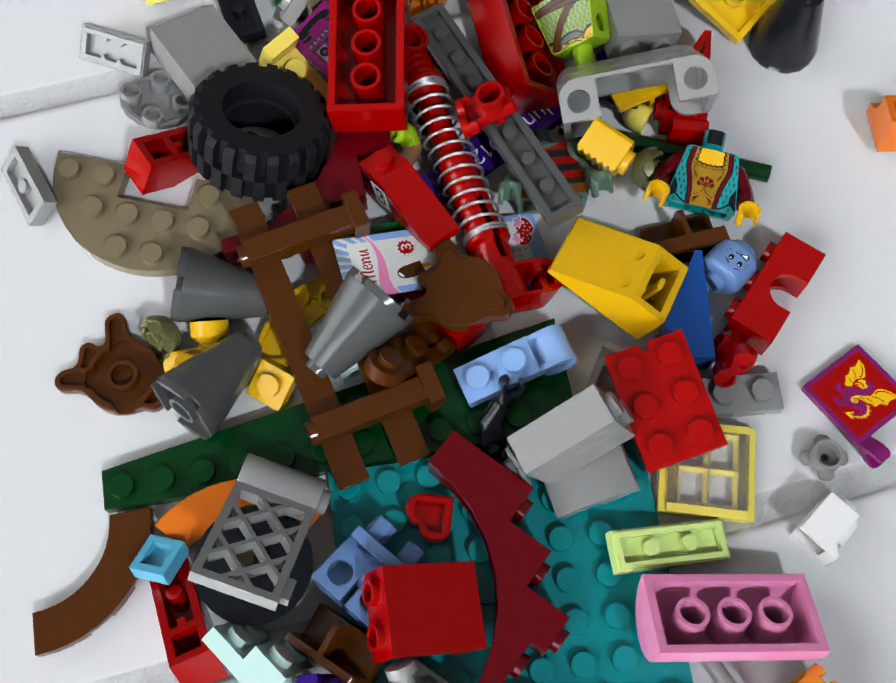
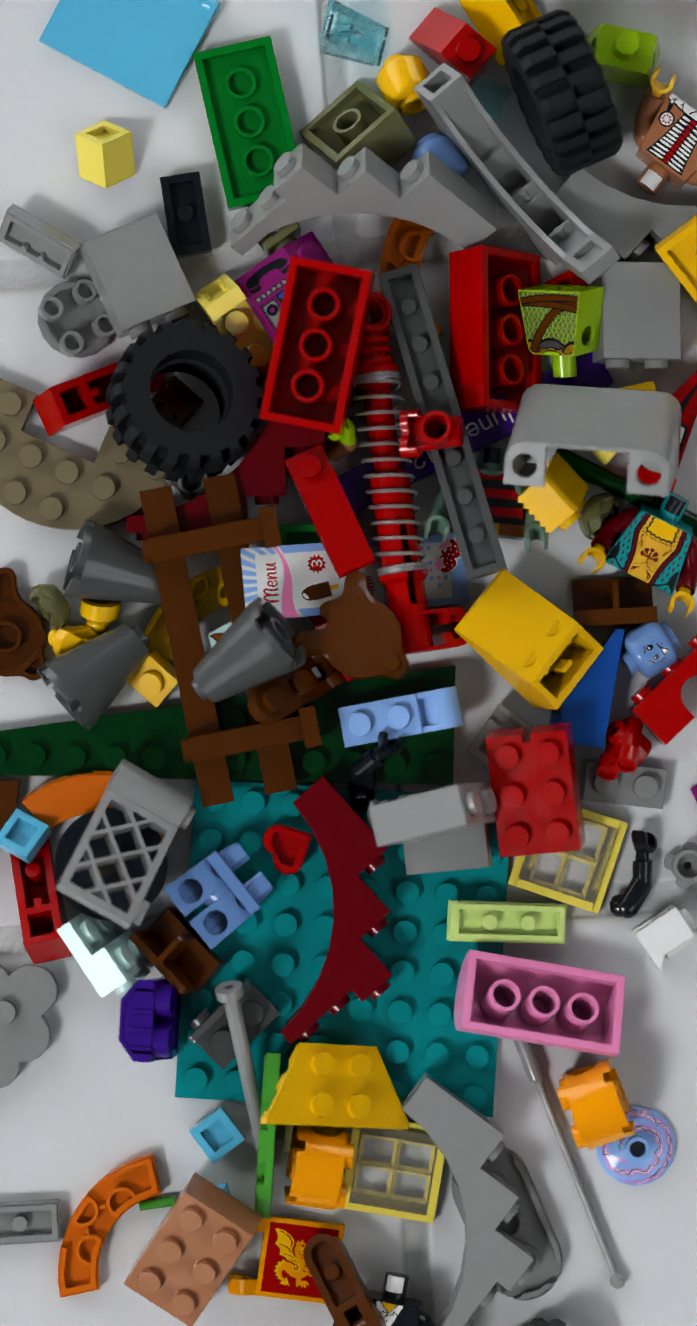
camera: 15 degrees right, 20 degrees up
(423, 610) = (260, 942): red panel -> none
(786, 485) = (641, 883): none -> black arm

